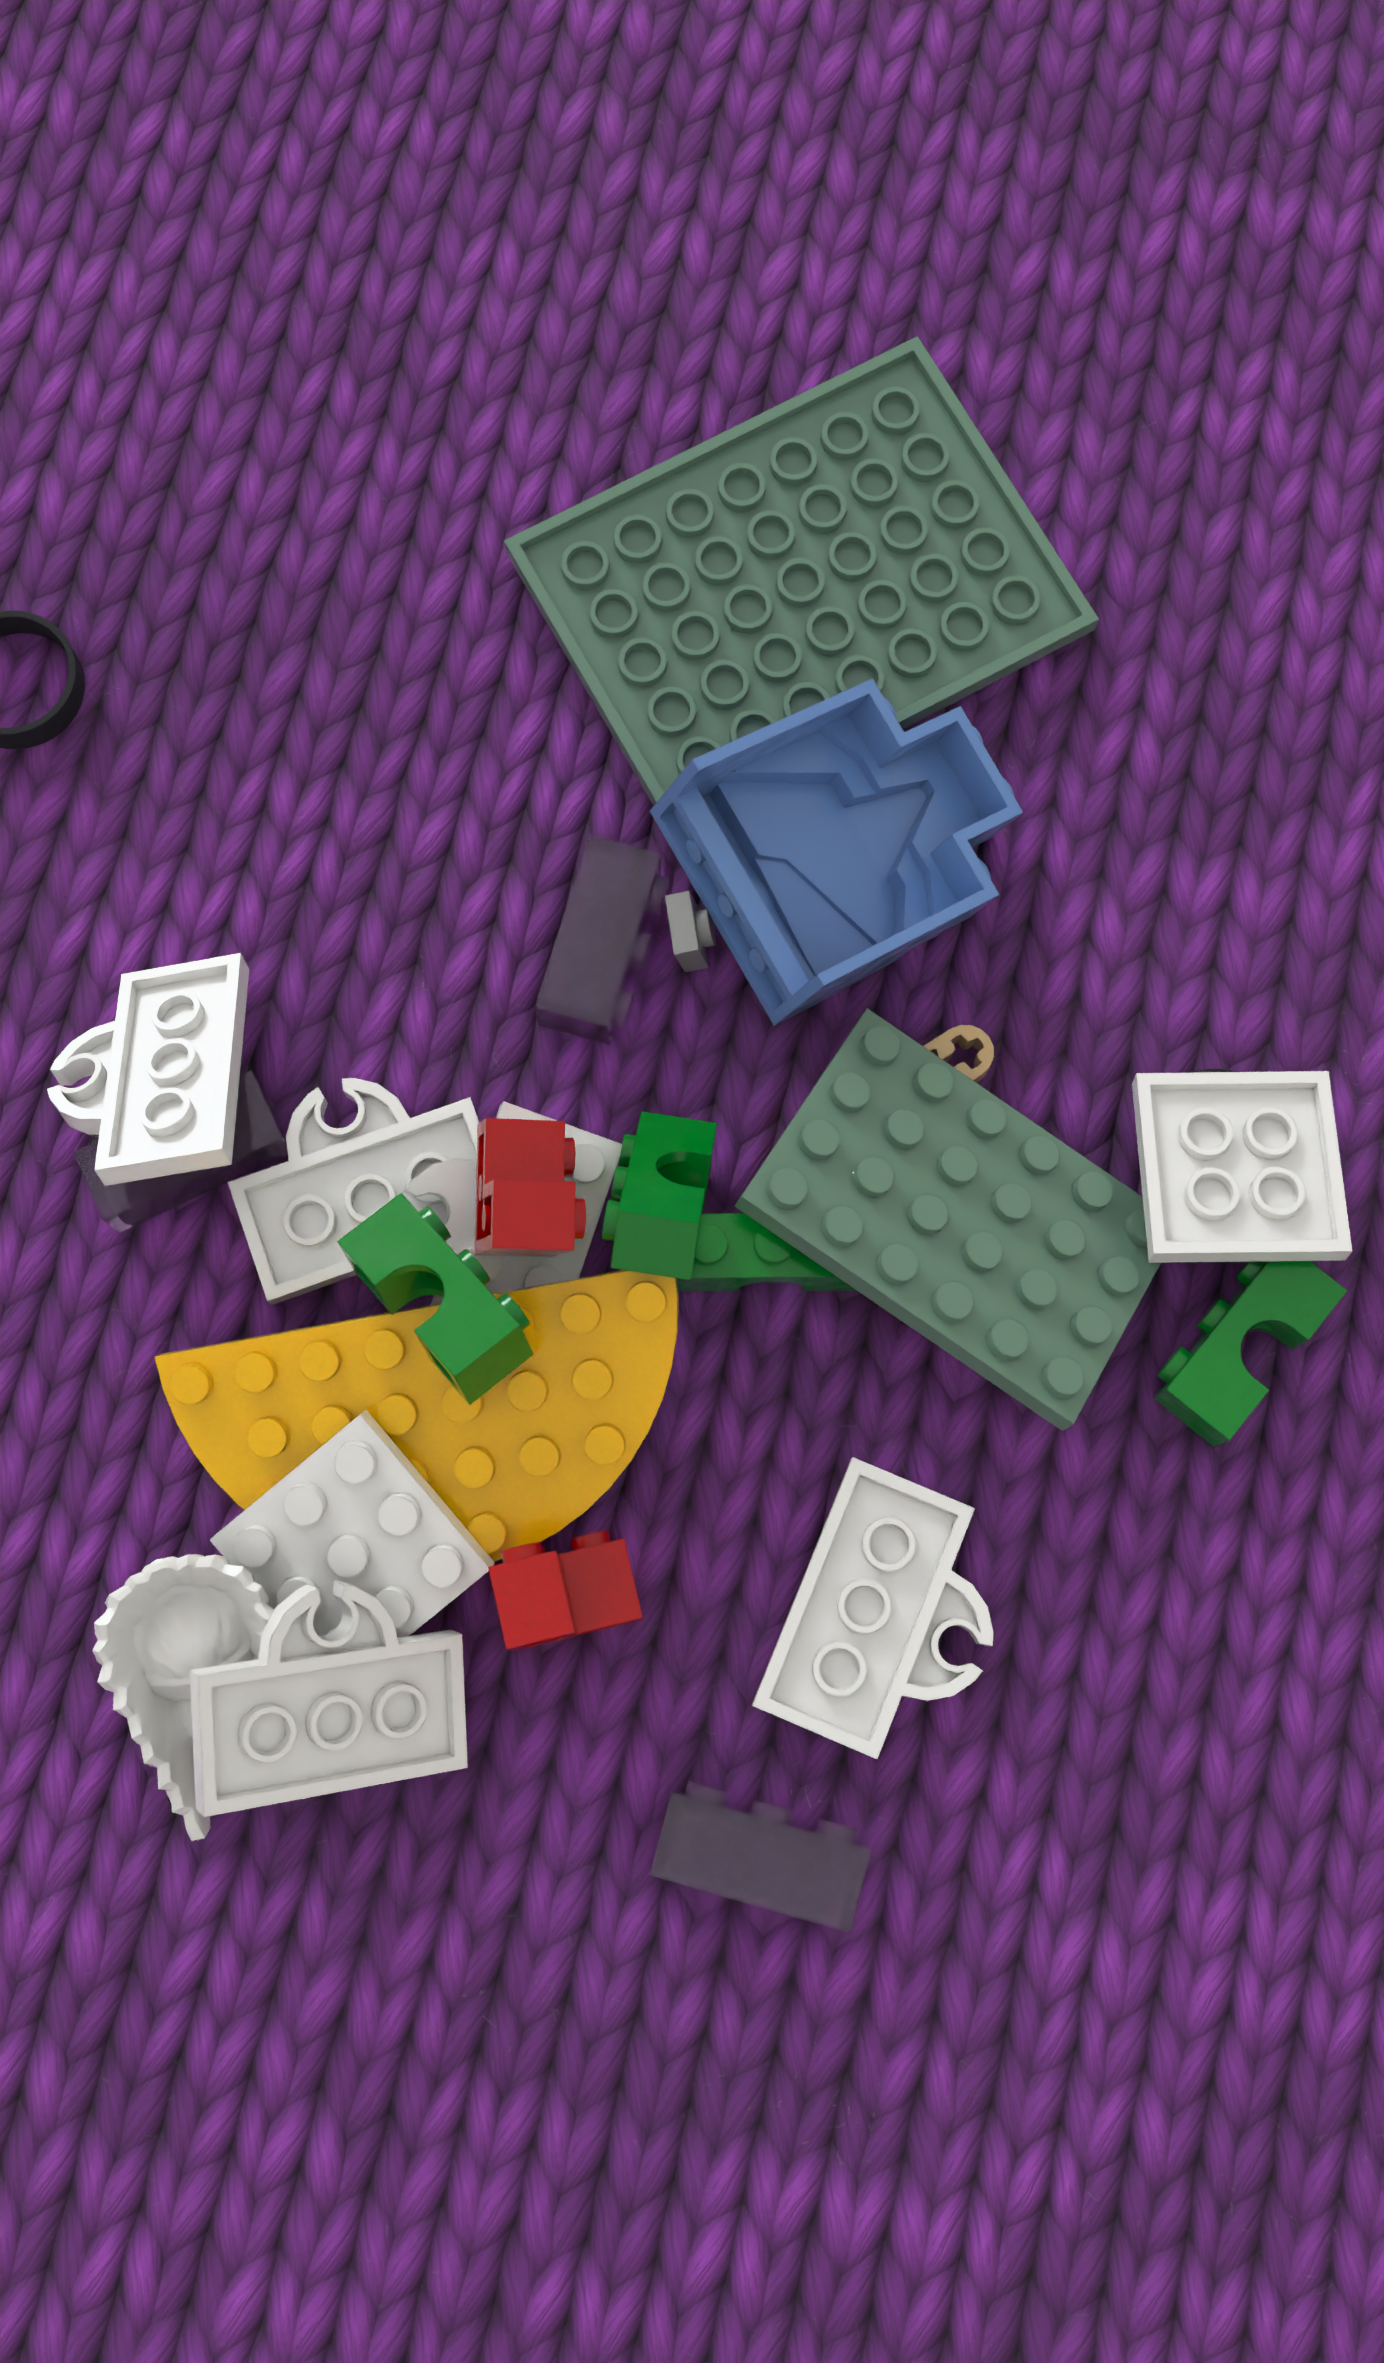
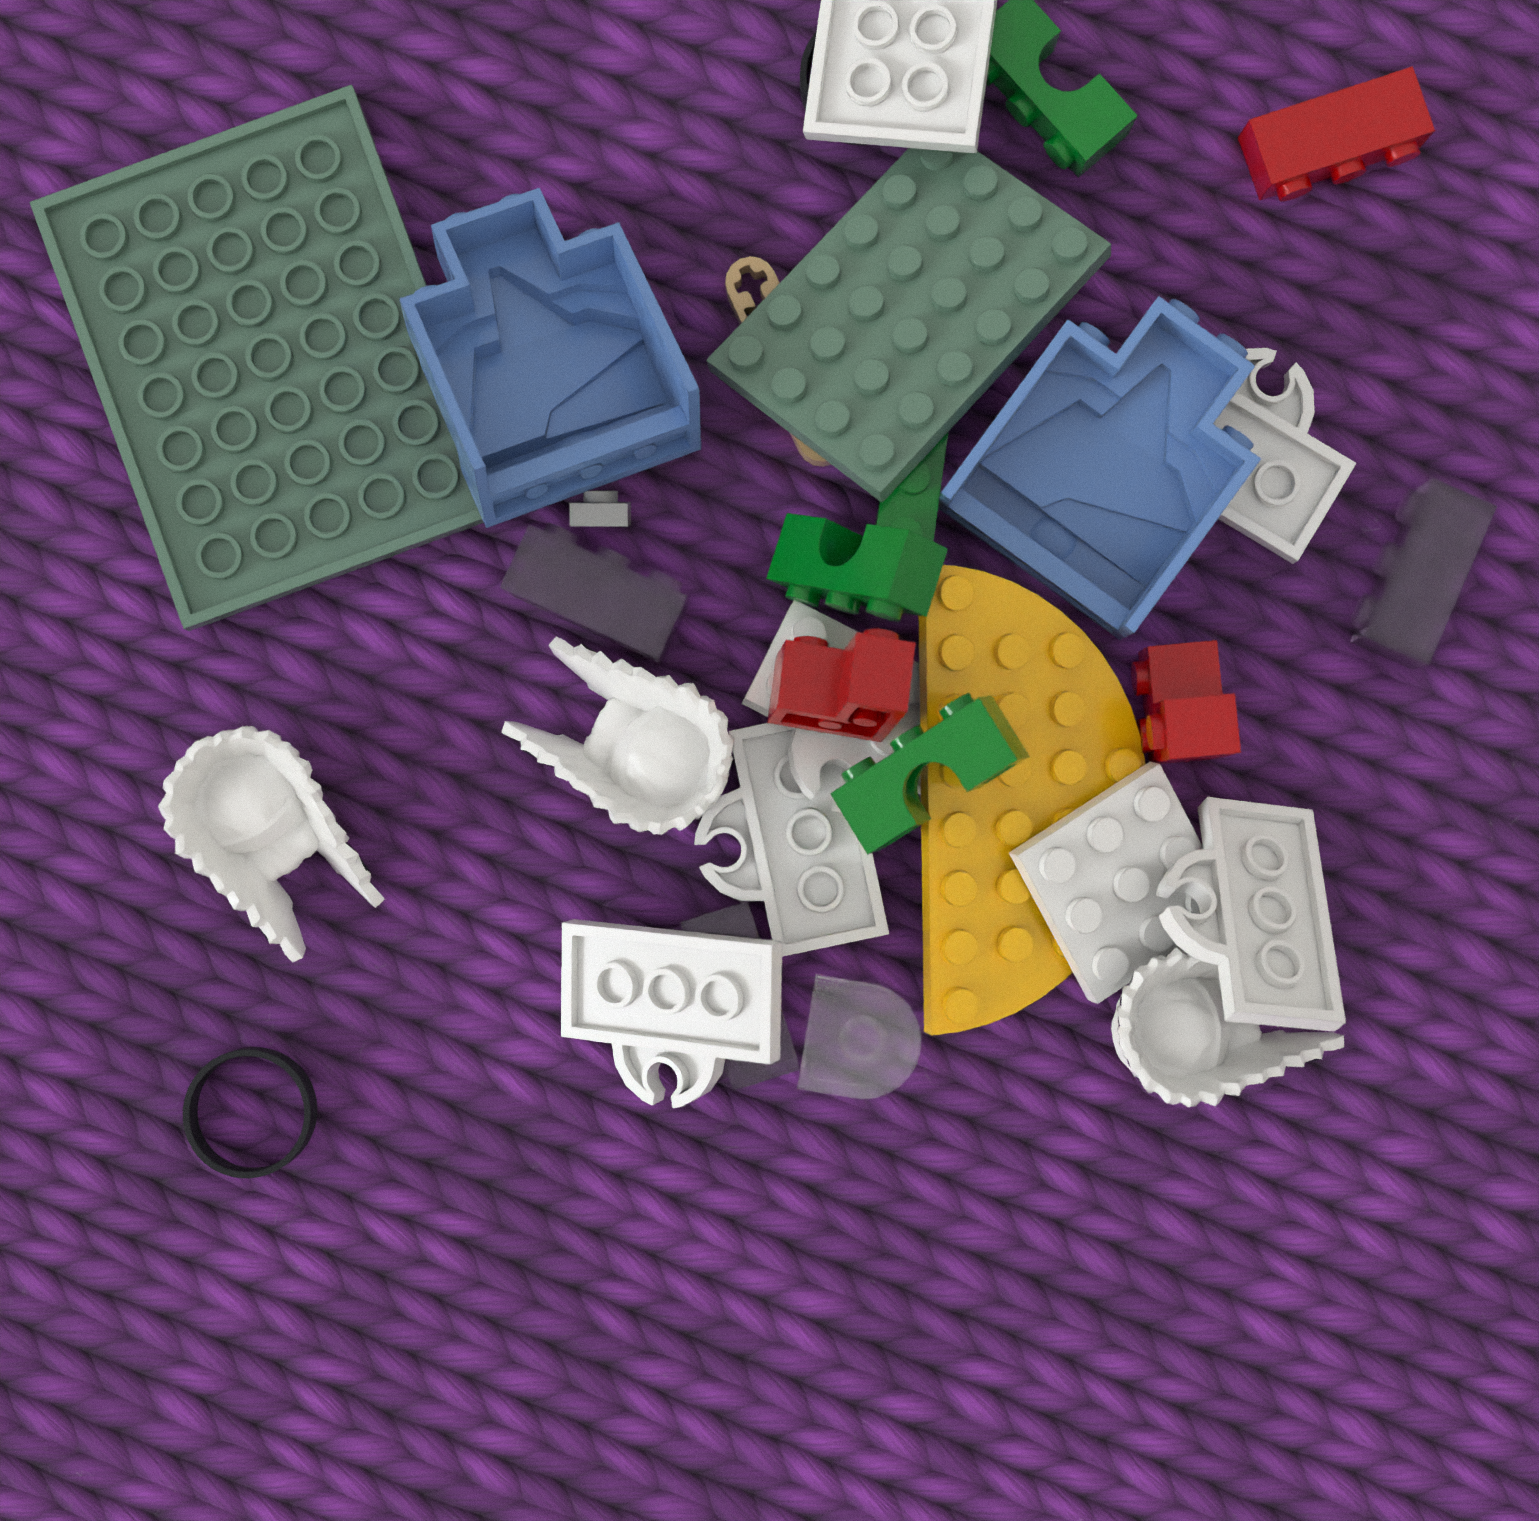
camera: 80 degrees left, 10 degrees up
(150, 1287) = (857, 1039): none -> clear tile
(312, 625) = (250, 816): none -> white piece
(426, 1016) = (653, 751): none -> white piece
(827, 1458) = (1110, 463): none -> medium blue panel
(1257, 1683) = (1336, 135): none -> red brick

